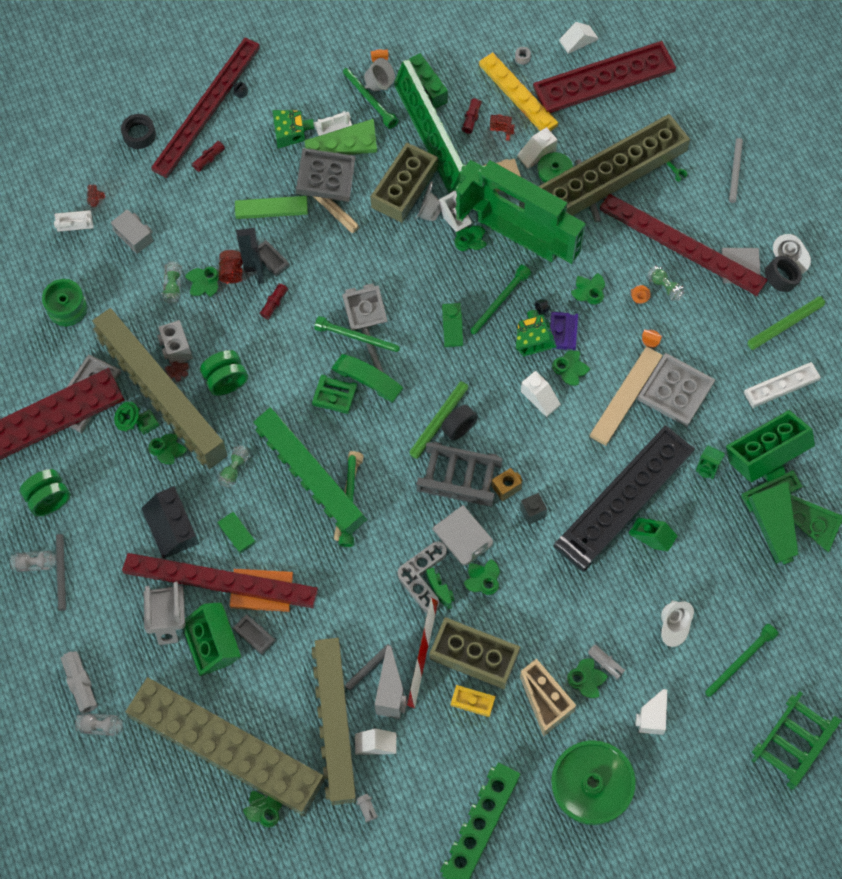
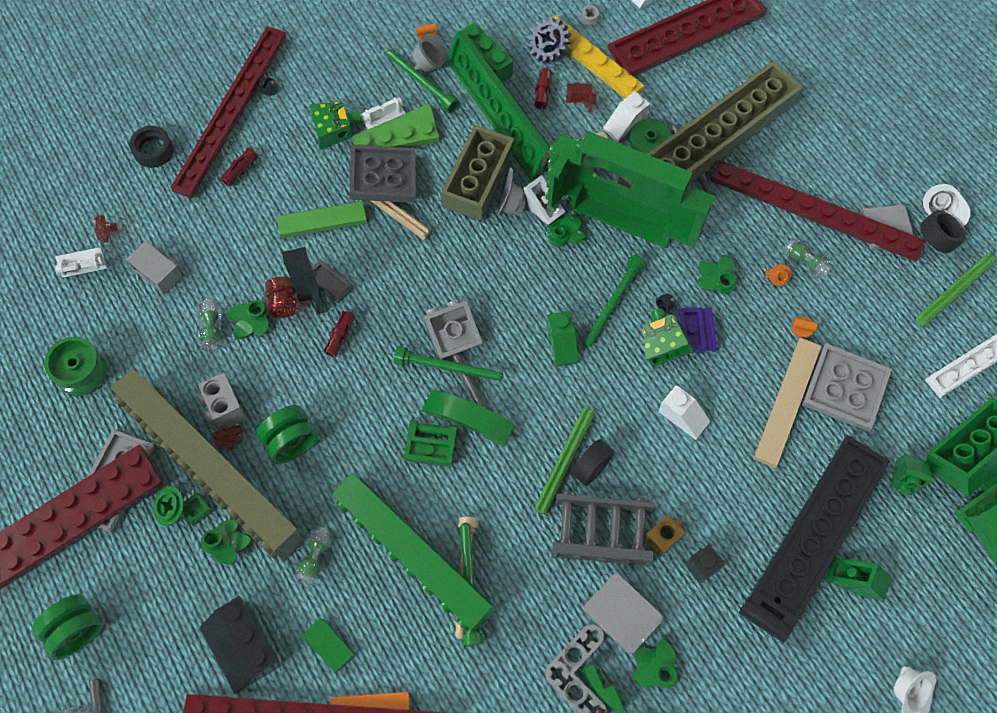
camera: 10 degrees left, 0 degrees up
(489, 69) = (551, 30): none -> gear
(573, 367) = (716, 374): green plate -> none
(681, 171) = (796, 126): green hand -> none
(735, 170) = (856, 118): light grey bar -> none

